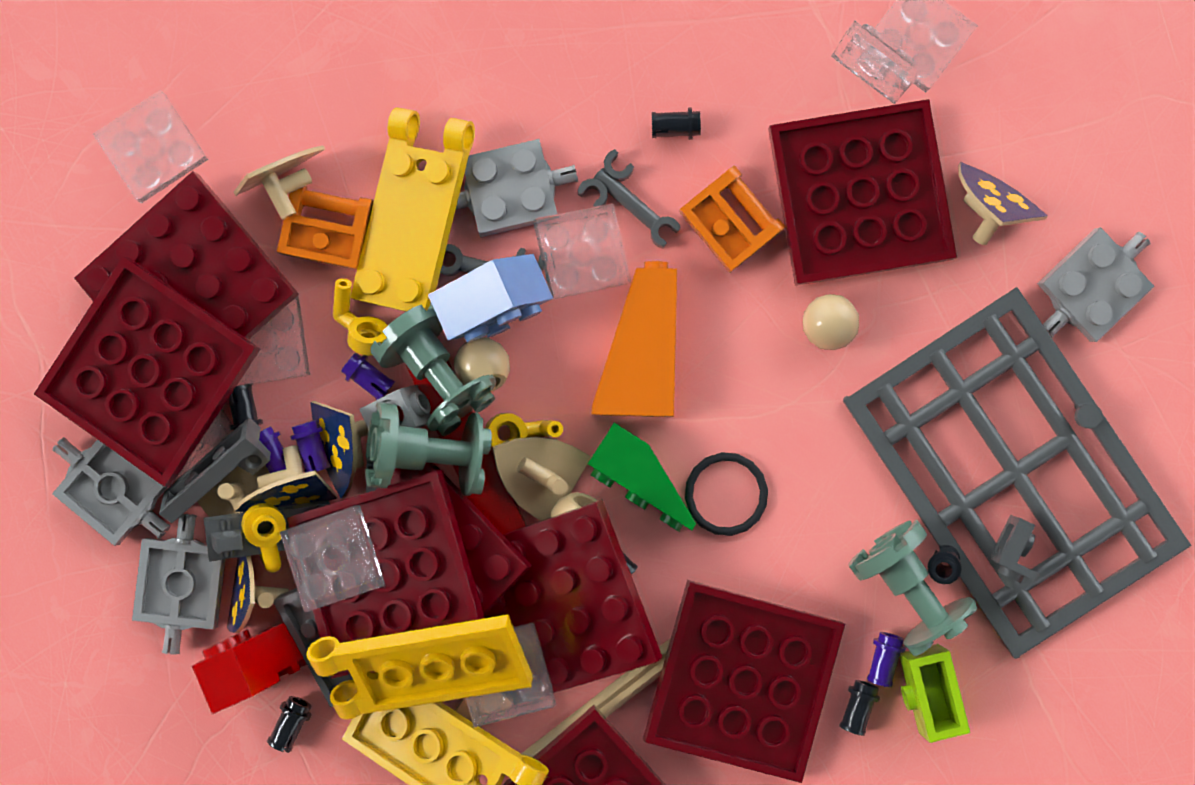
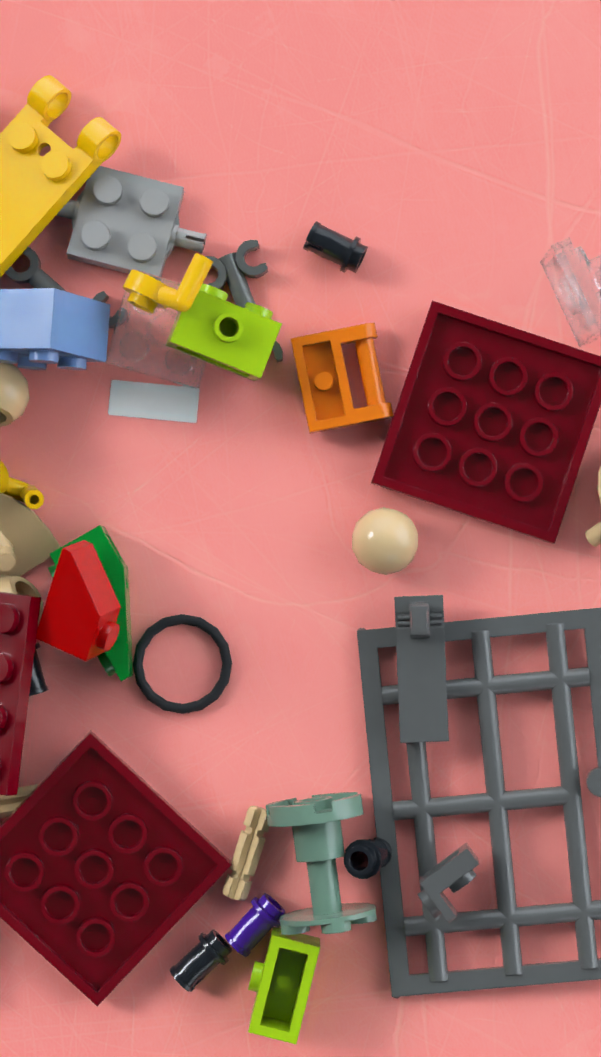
camera: 25 degrees right, 0 degrees up
(560, 228) = (150, 293): none -> yellow plate
(595, 311) = (153, 401): none -> white sticker
(630, 229) = (225, 333): none -> lime brick
(634, 490) = (80, 605): none -> red slope
(642, 356) = (170, 469): orange slope -> none
(850, 609) = (246, 854): none -> tan axle
(909, 403) = (421, 669): none -> dark grey hinge

